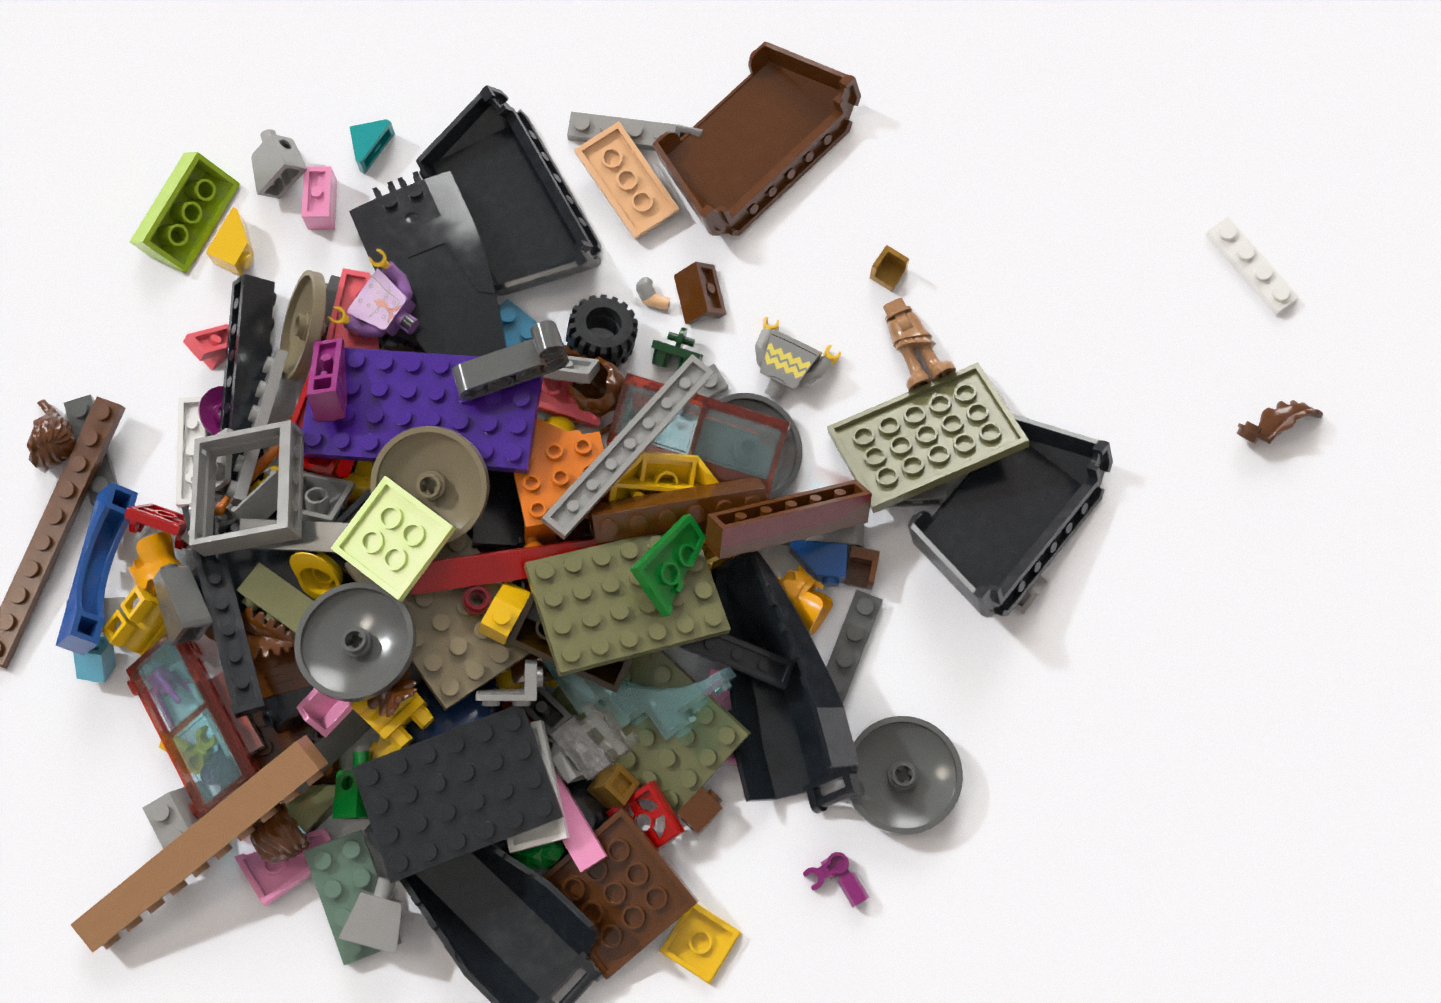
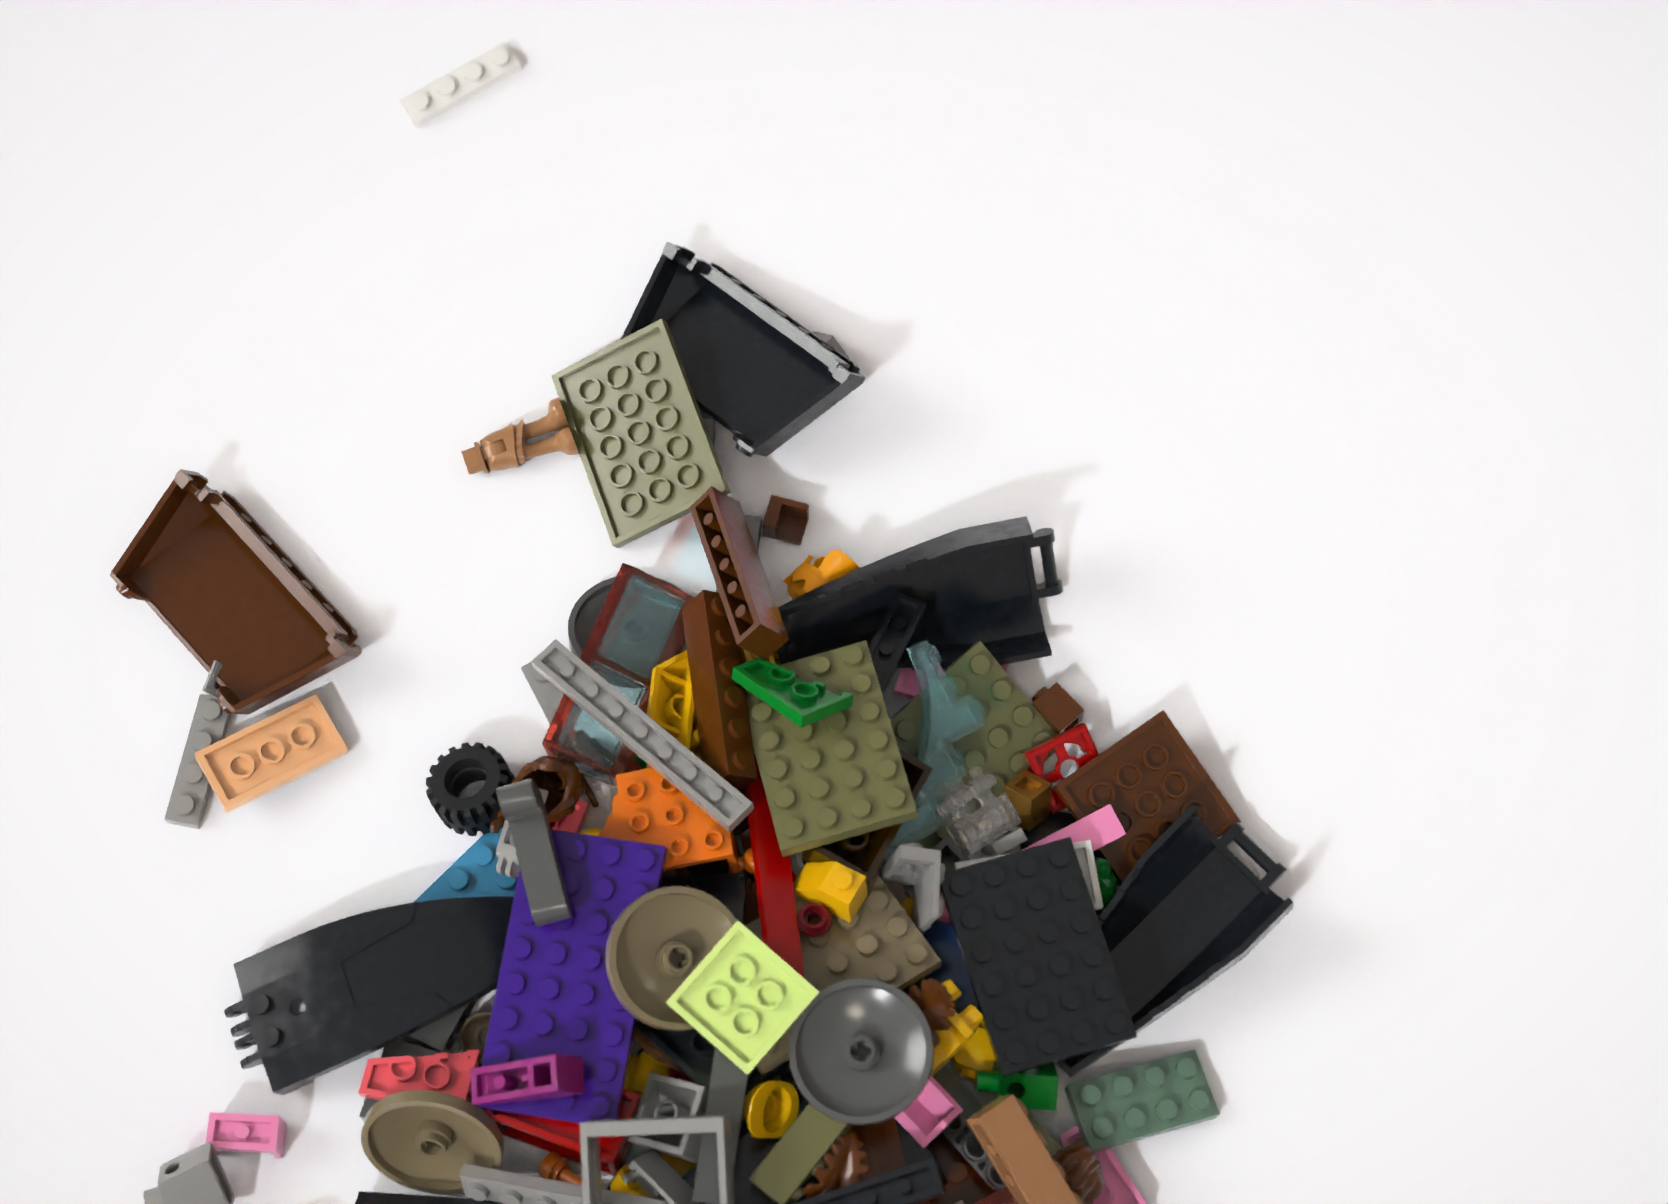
camera: 85 degrees left, 5 degrees down
(369, 141) = (172, 1074): teal slope -> none
(375, 918) = (1171, 1066): light grey torso -> none
(382, 304) = (420, 1033): torso -> none
(513, 194) = (272, 889): black windscreen -> none
(648, 295) = (424, 738): arm -> none
(663, 350) = (511, 694): dark green hips -> none
(699, 292) = (428, 680): reddish brown panel -> none
(700, 942) = (1204, 720): yellow tile -> none
(789, 360) = (527, 580): light grey torso -> none
(821, 560) = (779, 555): blue slope -> none
(837, 865) = (1121, 572): magenta bar -> none
(852, 640) = (857, 534): dark grey plate -> none
(889, 268) = (421, 462): pearl gold panel -> none
(907, 775) = (1032, 478): dark grey dish -> none
(1276, 421) = (650, 79): reddish brown plant -> none

